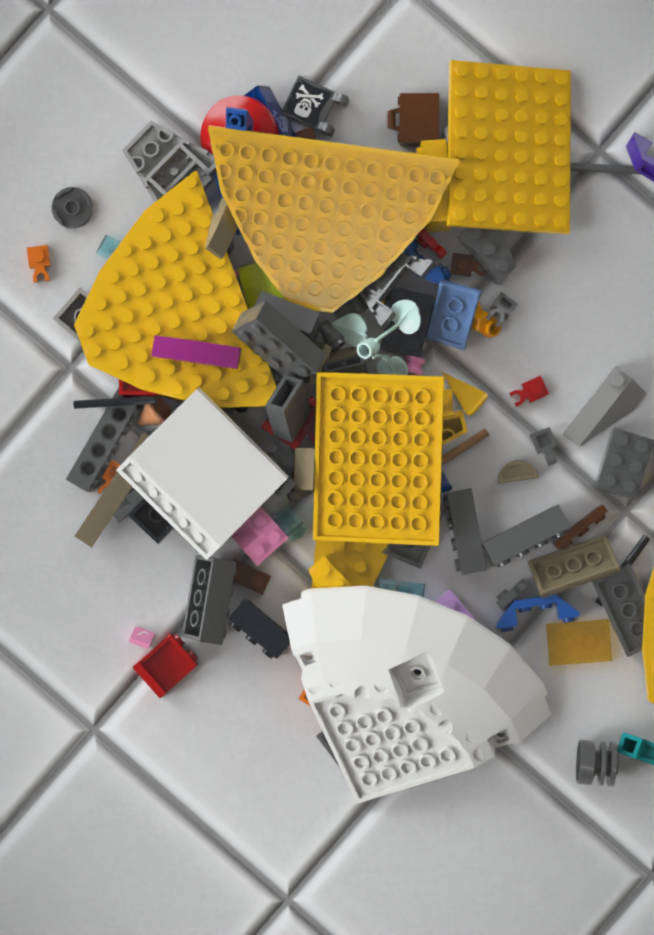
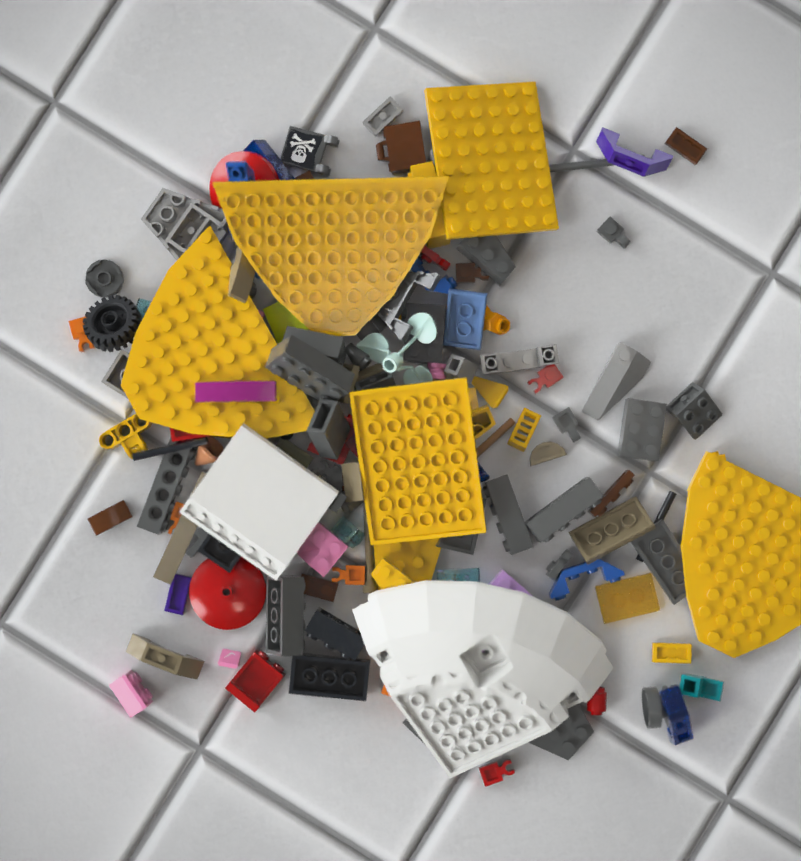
camera: 10 degrees left, 0 degrees up
(31, 656) = (132, 693): none -> bright pink slope
(37, 465) = (109, 517): none -> reddish brown slope
(70, 387) = (129, 441): none -> yellow piece
(72, 625) = (163, 658): none -> dark tan slope
(74, 257) = (112, 323): none -> black wheel
(97, 560) = (178, 594): none -> dark purple tile
(150, 586) = (233, 610): none -> red dish
(246, 673) = (329, 677): none -> black brick
(287, 569) = (353, 574): none -> orange plate
(305, 582) = (369, 585): none -> dark tan piece
(400, 81) = (382, 116): none -> light grey plate
(403, 805) = (492, 773): none -> red plate
(440, 365) = (461, 367): none -> light grey brick
(486, 457) = (516, 443): none -> yellow slope
(489, 778) = (568, 736): none -> dark grey wing
(501, 308) = (508, 306): dark grey plate -> none
(504, 368) = (519, 360): none -> light grey slope
(528, 747) = (598, 702): none -> red brick
(610, 773) = (678, 716): none -> clear blue slope
(616, 708) = (671, 652): none -> yellow plate
(627, 245) = (611, 231): none -> dark grey plate

